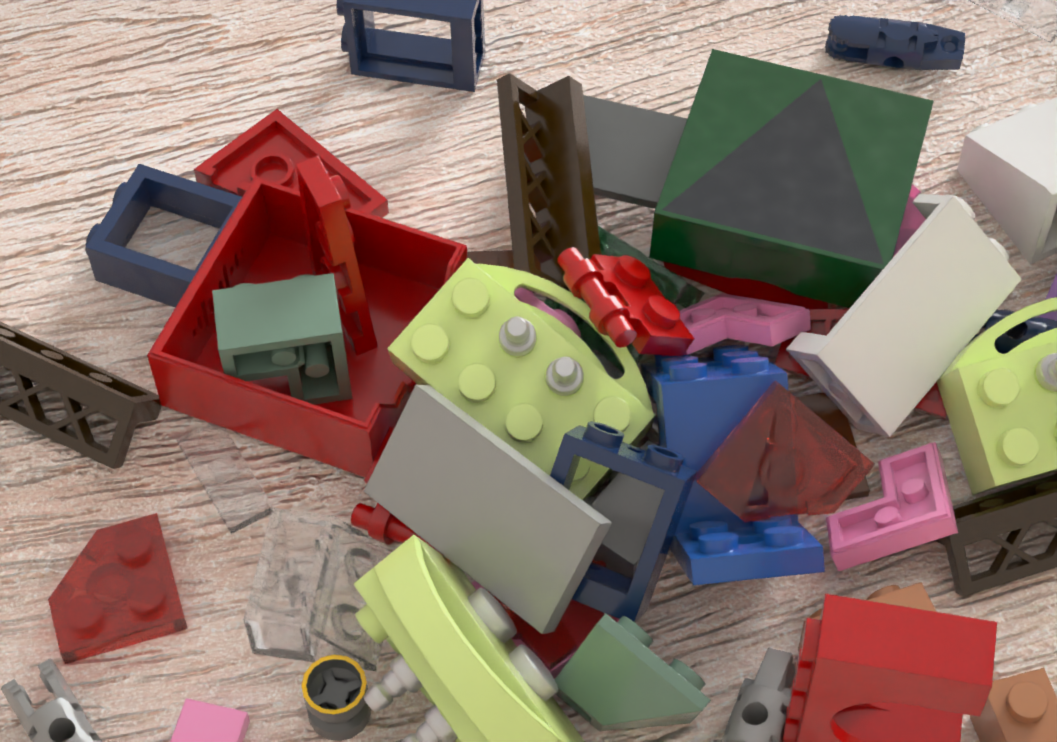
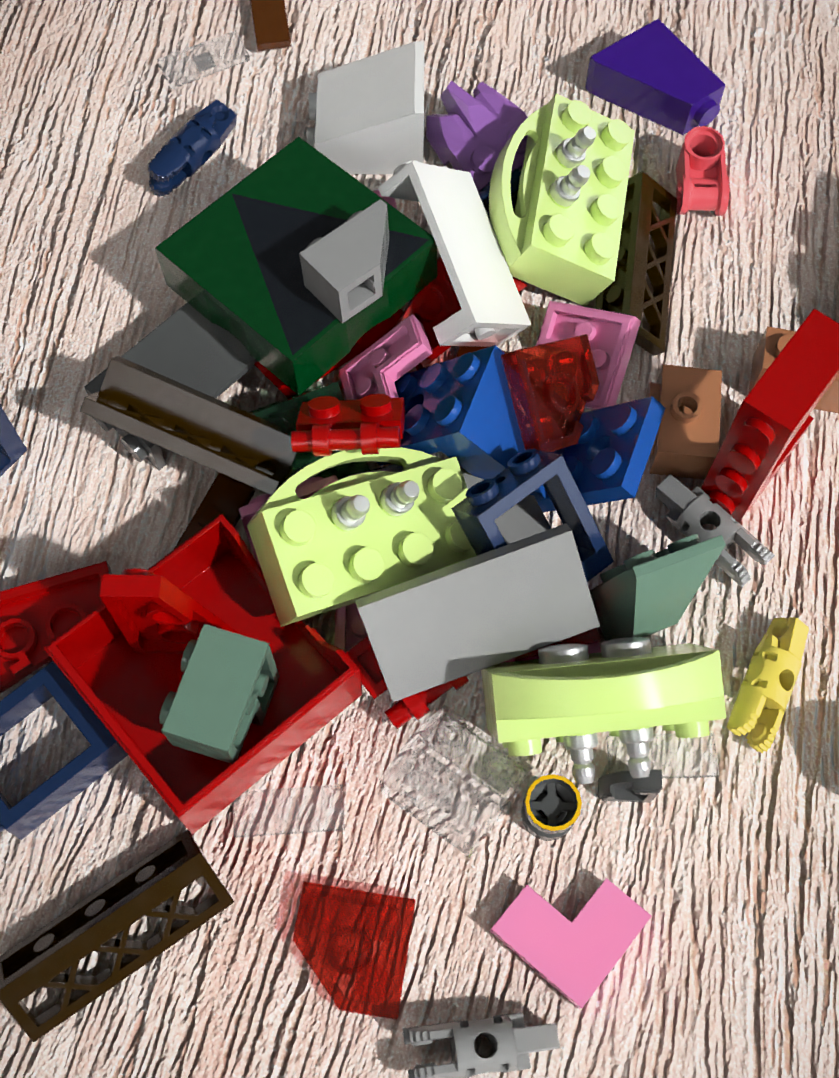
camera: 65 degrees left, 10 degrees up
(795, 202) = (349, 263): none -> light grey slope

